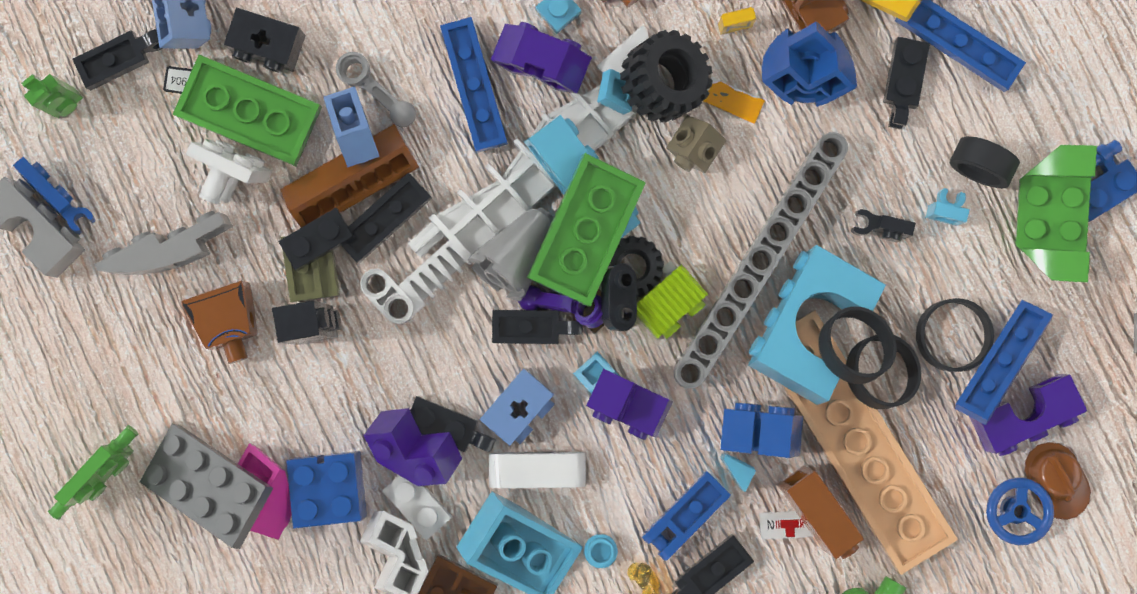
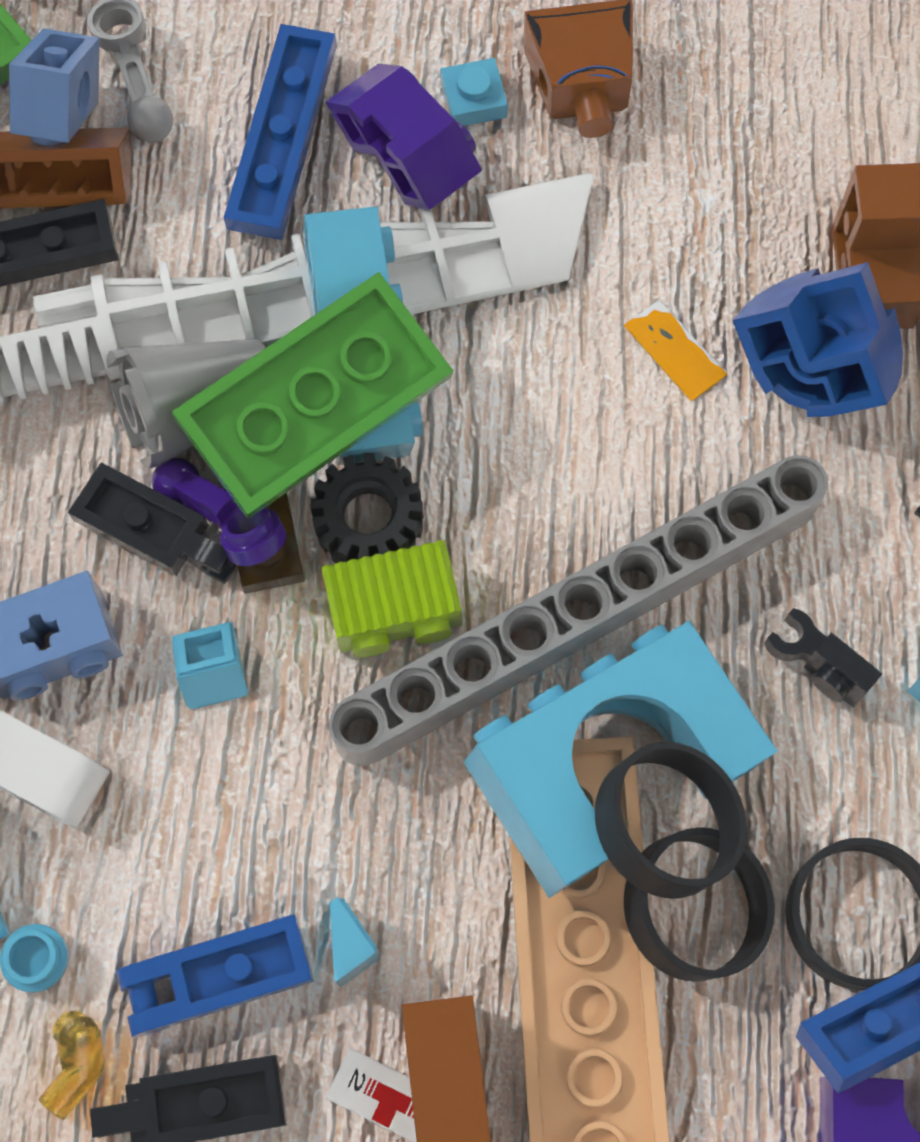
camera: 25 degrees right, 15 degrees down
(612, 94) = (491, 232): medium azure plate -> none
(619, 297) = (310, 531): black plate -> none
(628, 403) = (225, 720): dark purple brick -> none
(686, 67) = (613, 222): black tyre -> none
(695, 144) = (574, 373): dark tan brick -> none
(737, 20) = (742, 229): yellow tile -> none
(769, 433) = (423, 883): blue piece -> none

